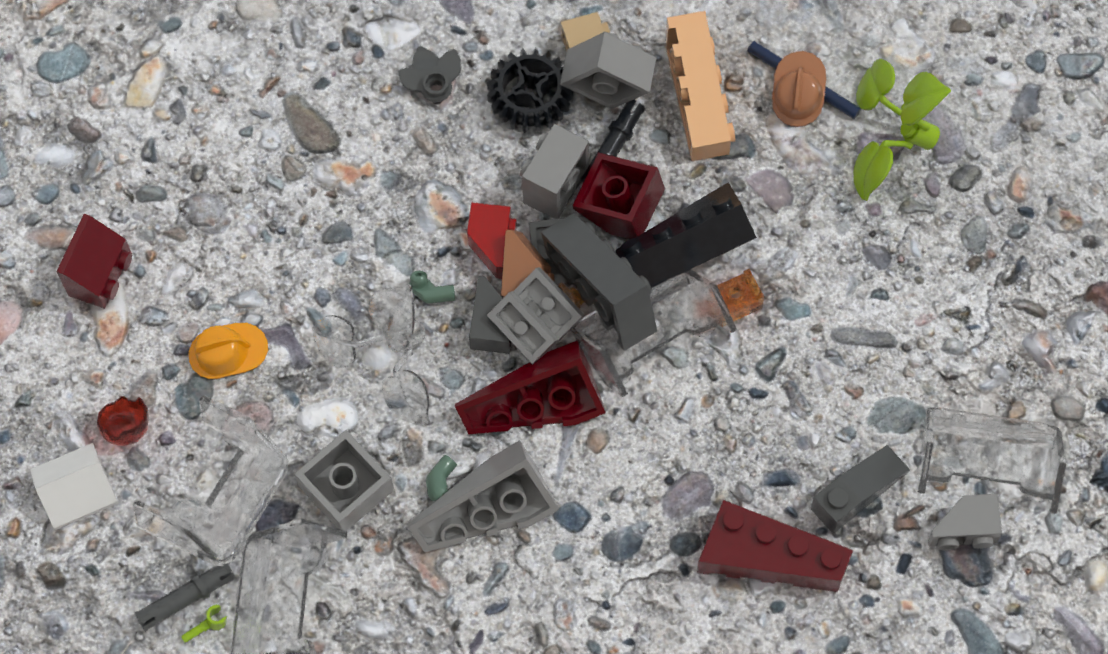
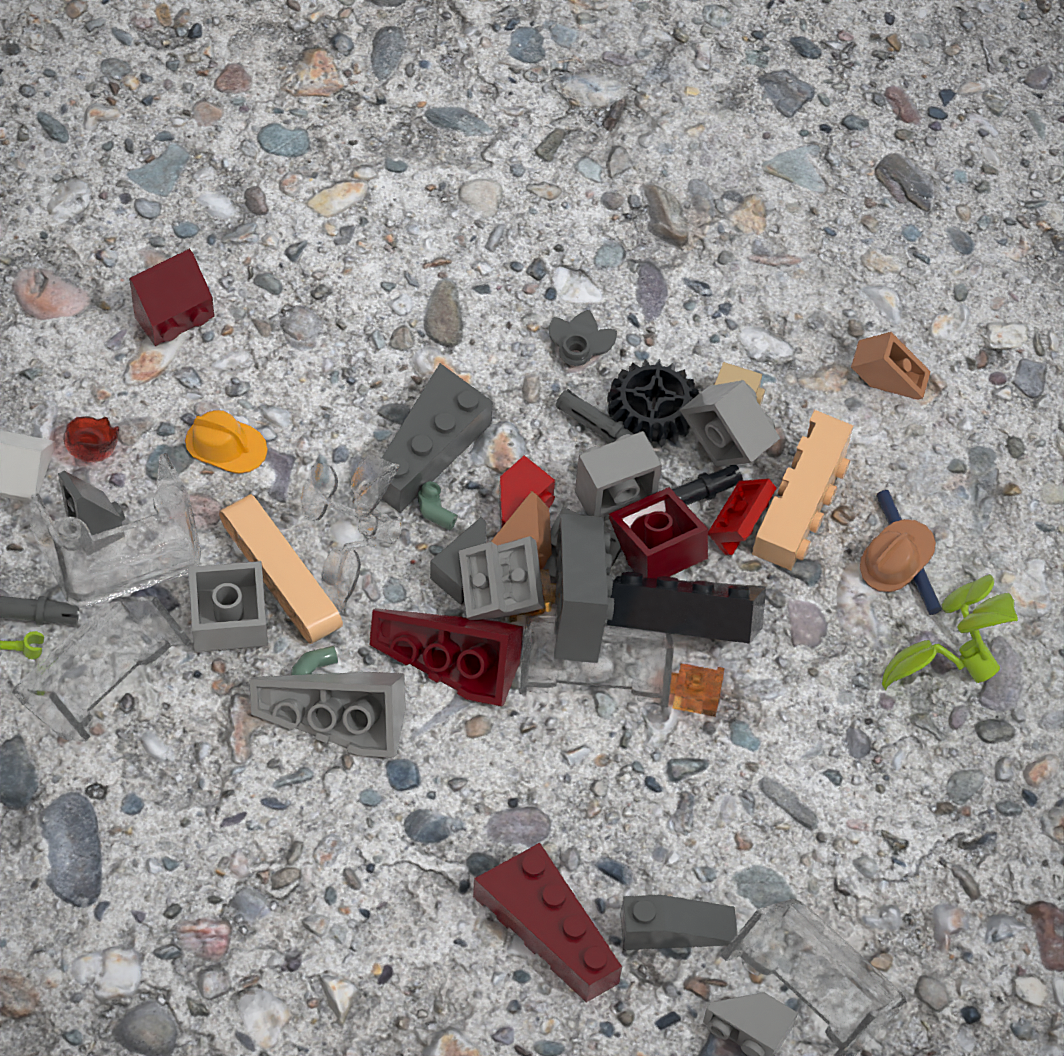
camera: 30 degrees right, 10 degrees down
(179, 480) = (89, 504): none -> dark grey slope
(367, 424) = (281, 569): none -> light nougat beam
(386, 226) = (435, 433): none -> dark grey wedge
(500, 134) = (591, 417): none -> dark grey pin
(667, 135) = (741, 513): none -> red bracket

